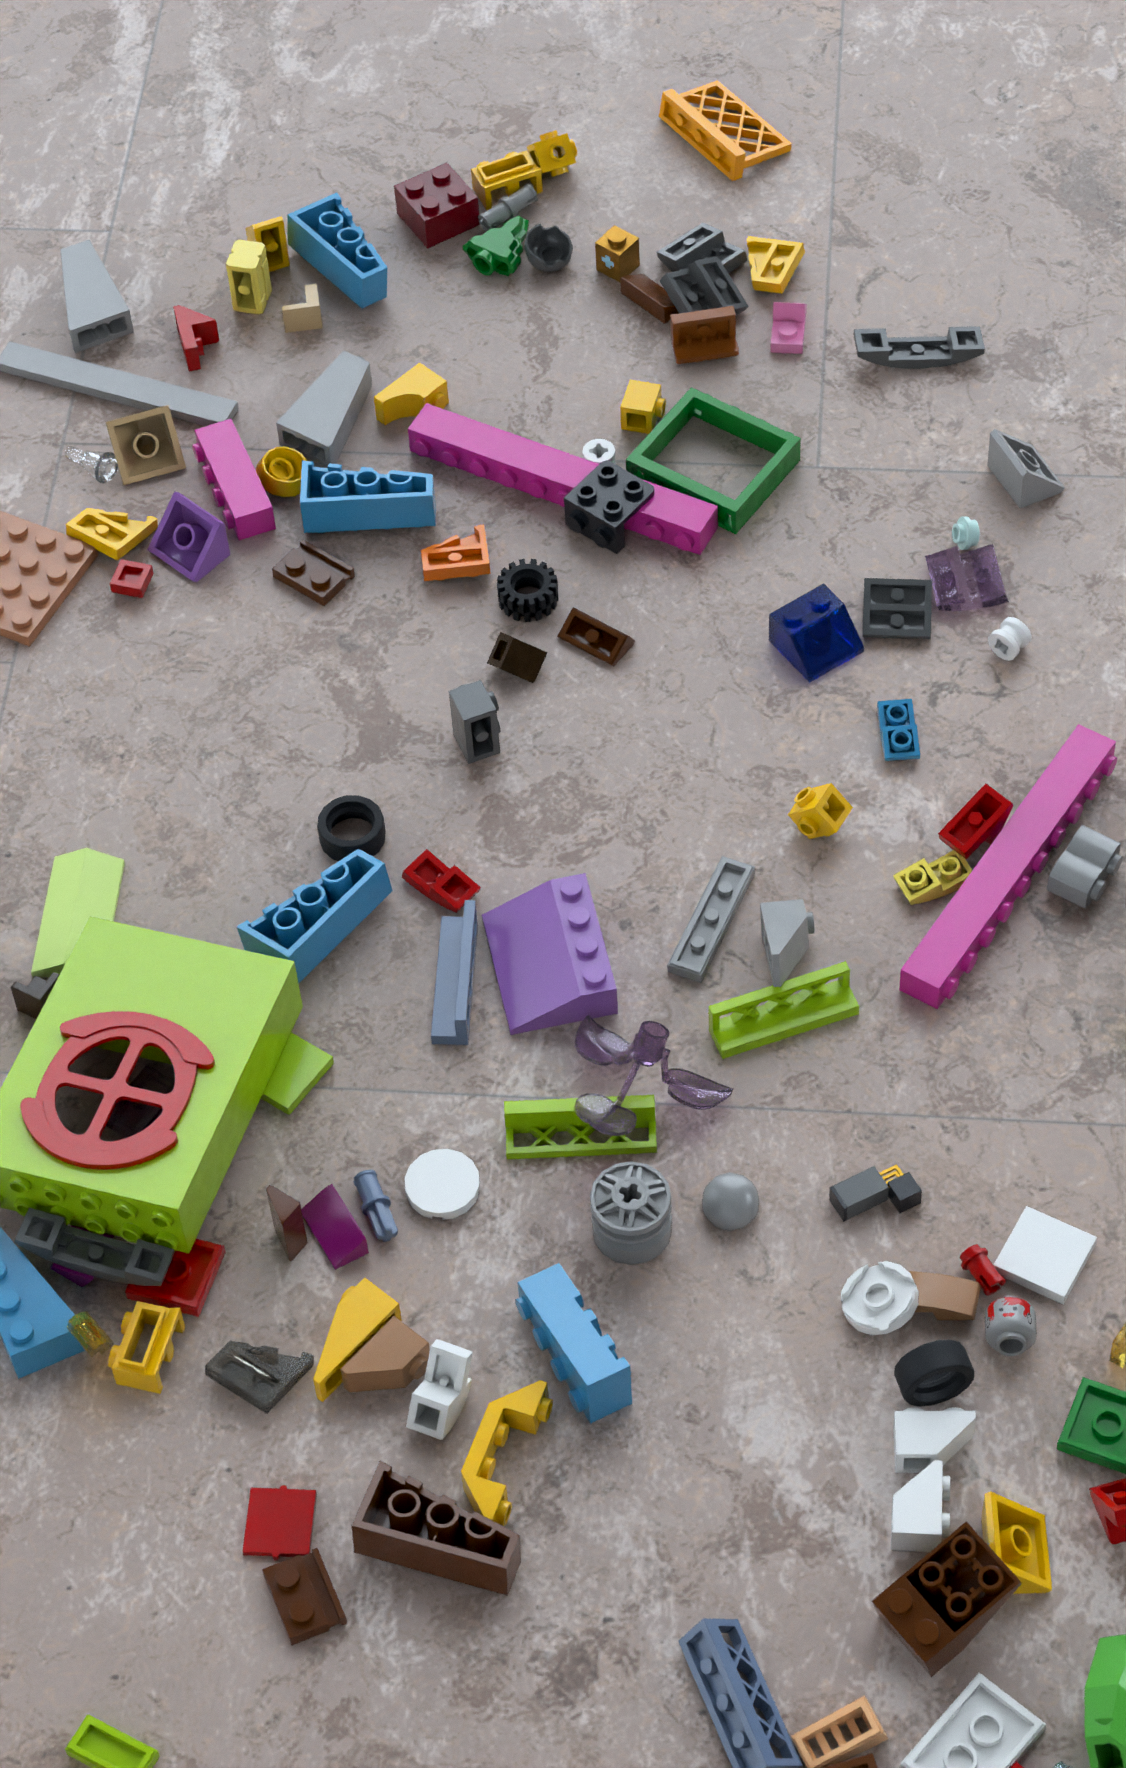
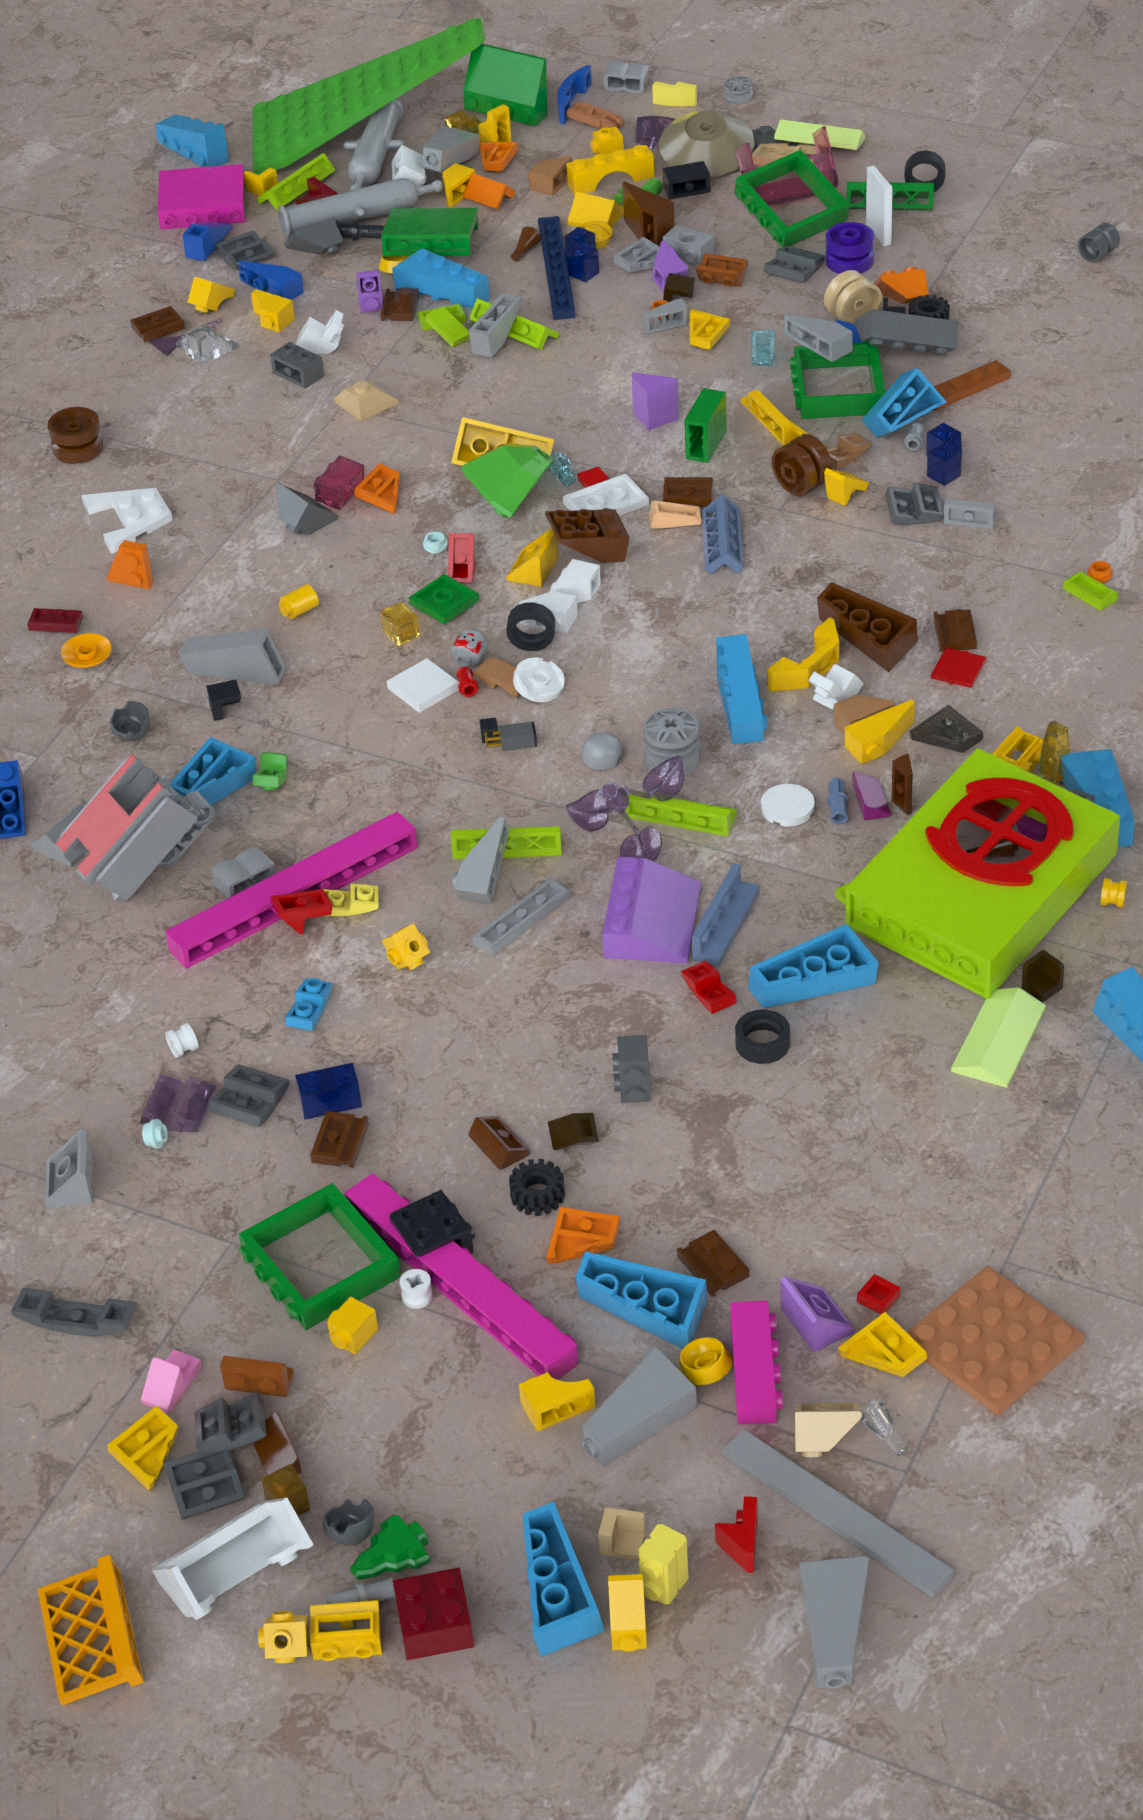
camera: 160 degrees left, 10 degrees down
(663, 187) = (232, 1554): none -> white windscreen
(764, 582) = (339, 1139): none -> reddish brown plate

